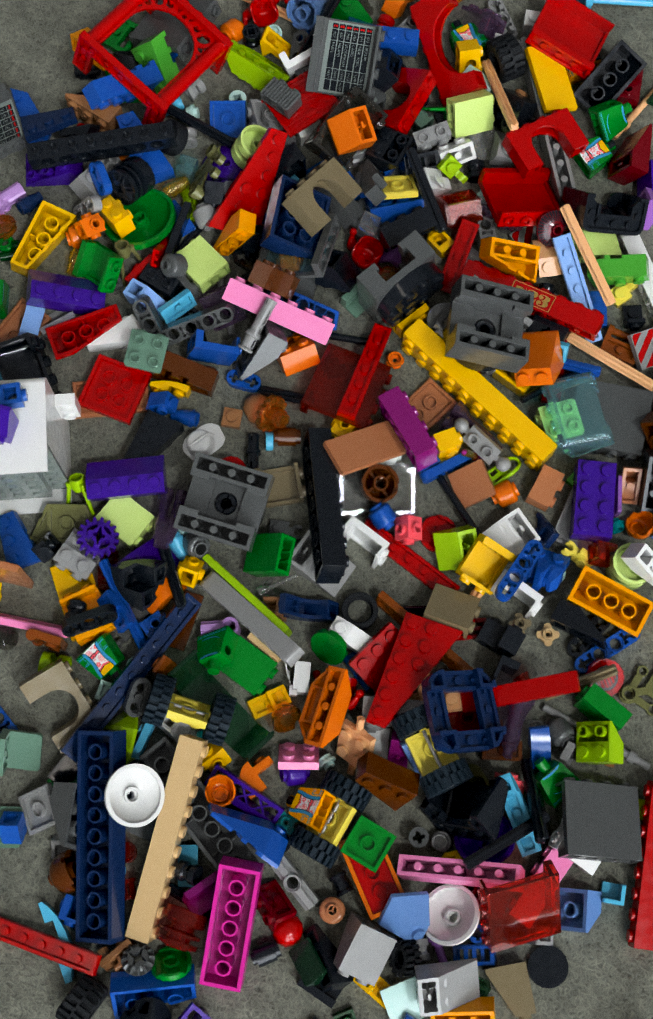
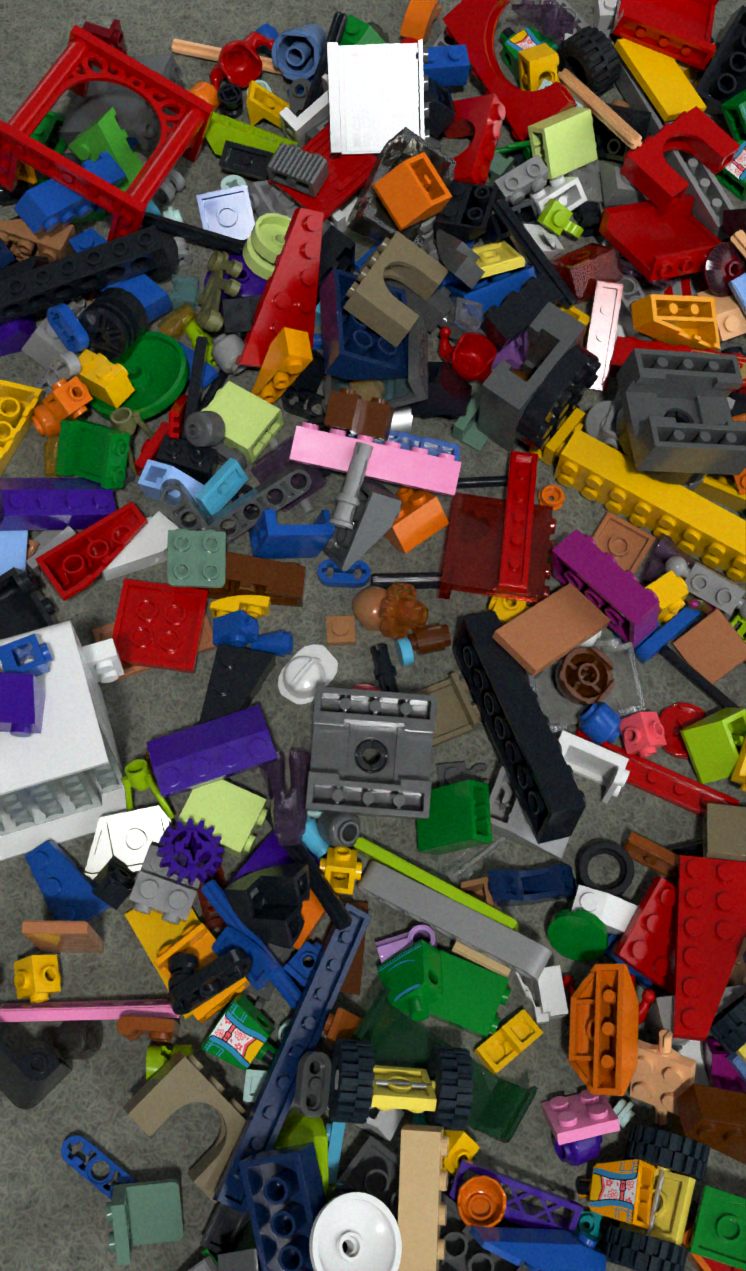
camera: 15 degrees left, 5 degrees down
(248, 81) = (245, 161): none -> black panel
(250, 774) = (513, 1162): orange brick -> none
(285, 717) = (540, 1059): clear orange hair -> none

